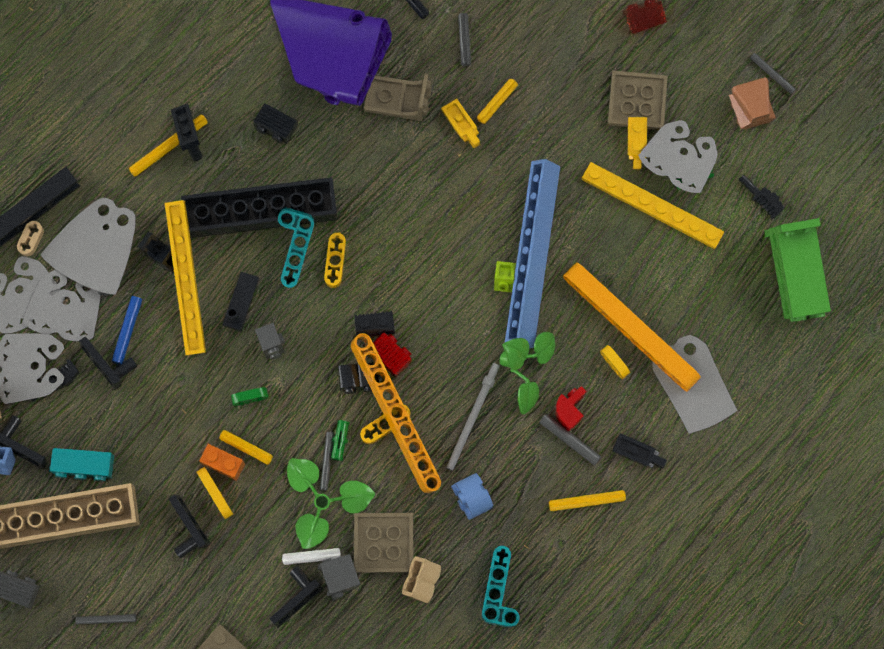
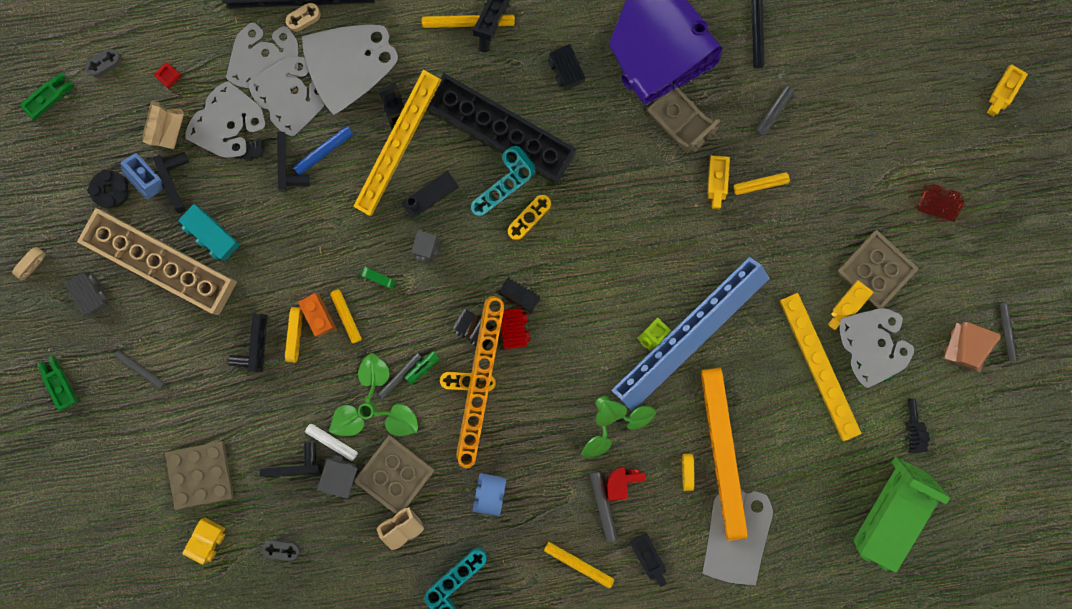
camera: 40 degrees right, 10 degrees up
(488, 383) = (574, 410): light grey bar -> none

